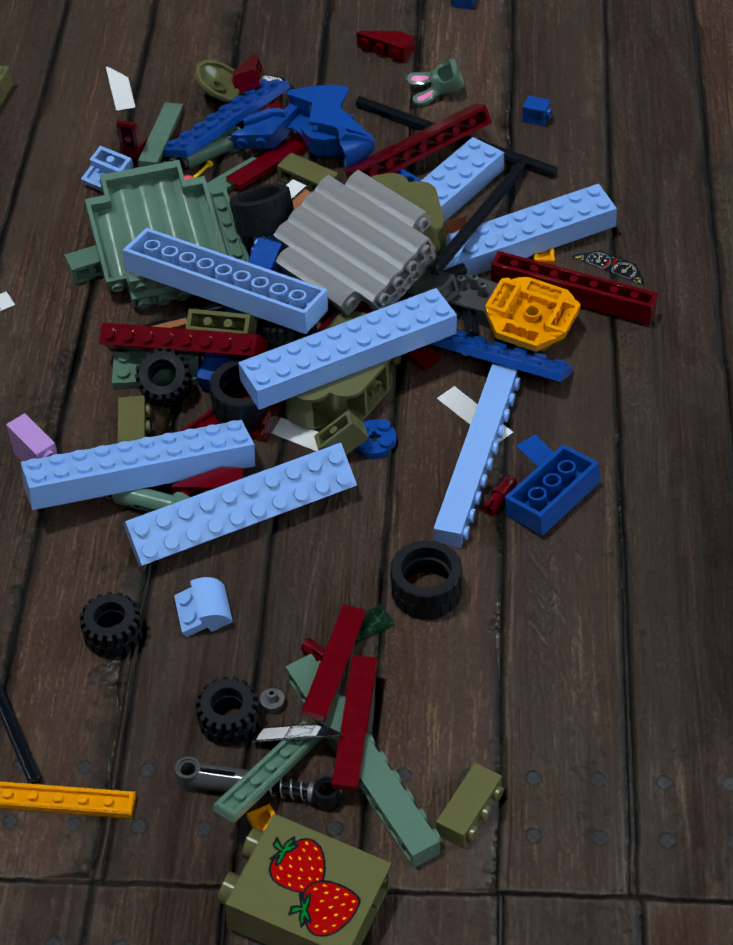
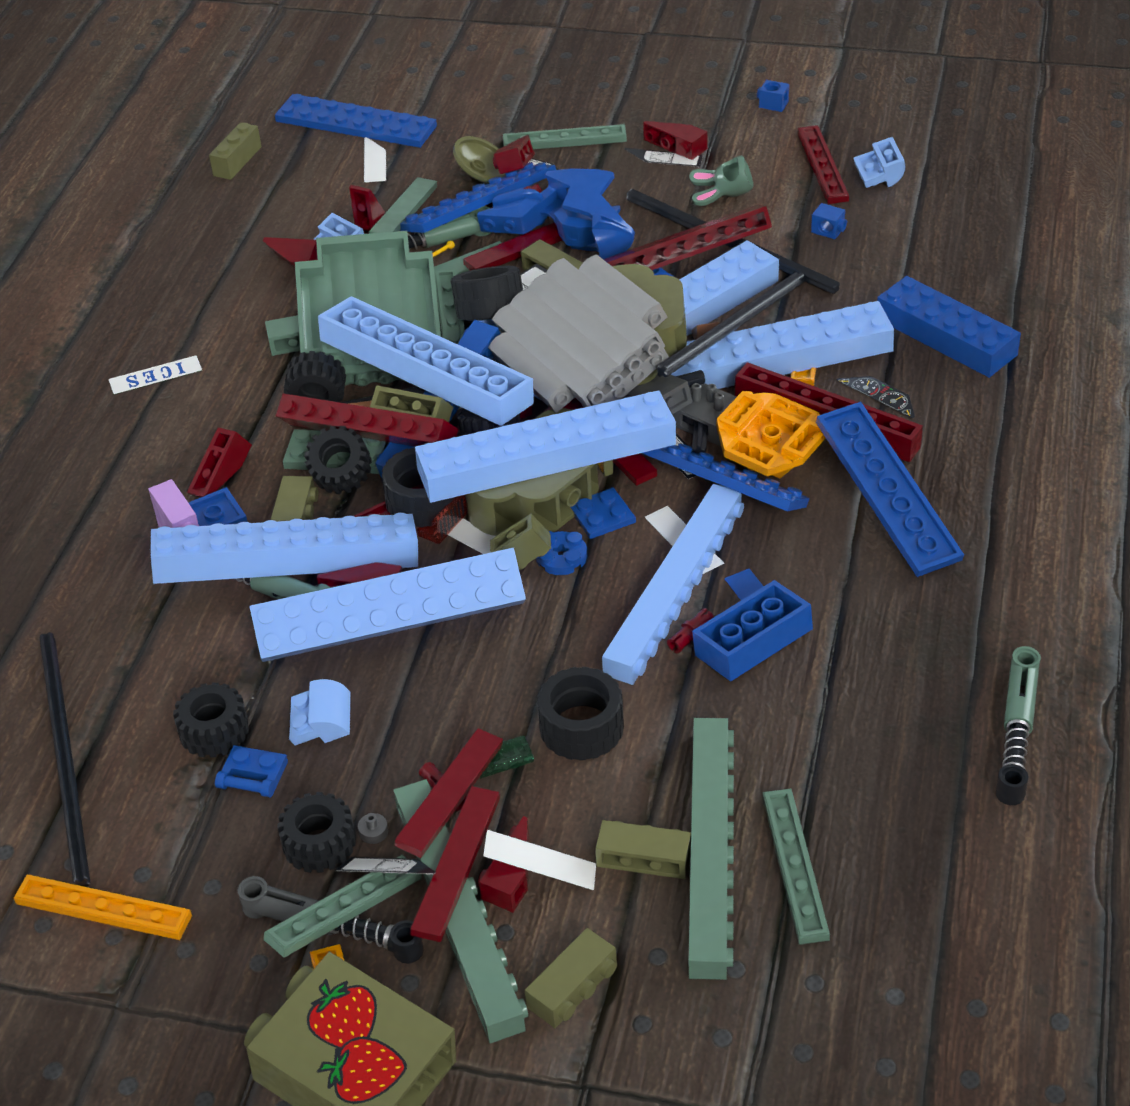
camera: 10 degrees right, 5 degrees down
(56, 391) = (220, 462): none -> dark red slope
(68, 434) = (218, 508): none -> blue plate
(77, 186) = (293, 249): none -> dark red slope
(94, 51) = (356, 120): none -> blue plate
(125, 304) = (322, 370): none -> black tyre
(156, 659) = (253, 765): none -> blue plate
(290, 50) = (571, 136): none -> sand green tile
(377, 62) = (664, 157): none -> sticker
(397, 727) = (504, 883): none -> dark red slope
(401, 399) = (603, 513): none -> blue plate
(422, 710) = (540, 859): none -> white sticker
(504, 689) = (643, 849): none -> olive brick
(519, 57) = (823, 164): none -> dark red tile
(557, 681) = (709, 850): none -> sand green brick
(570, 53) = (881, 164): none -> light blue brick
(629, 687) = (795, 867): none -> sand green tile
(640, 352) = (889, 489): none -> blue plate
(659, 199) = (949, 326): none -> blue brick

